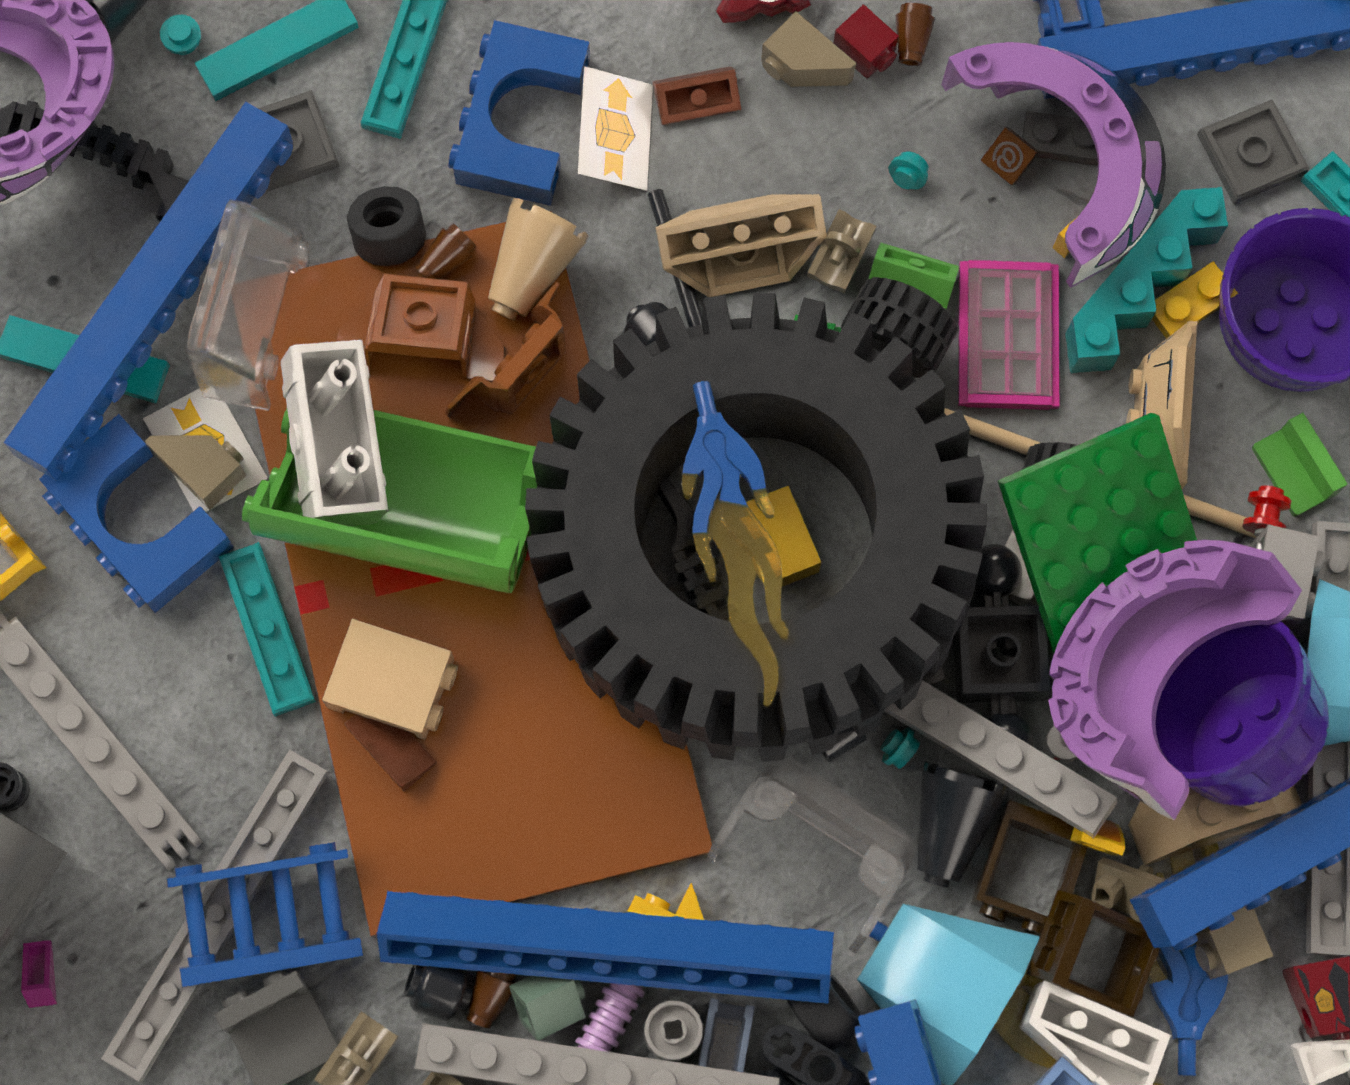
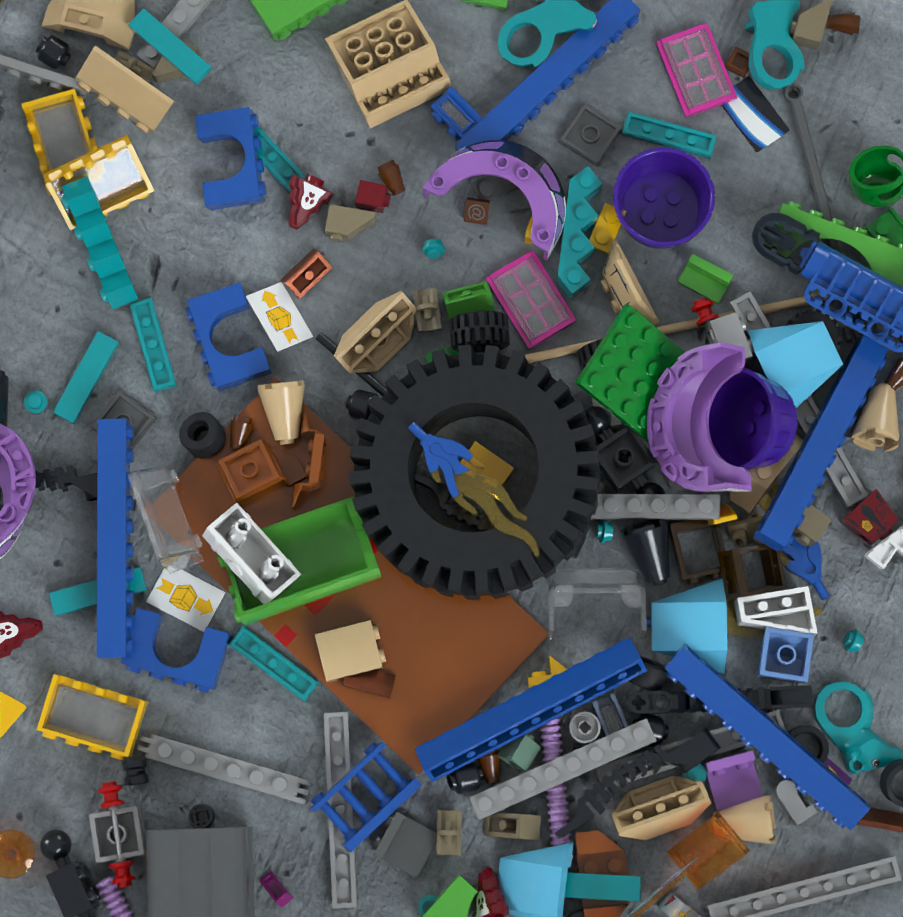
camera: 25 degrees left, 5 degrees up
(200, 464) = (190, 606): dark tan slope -> none

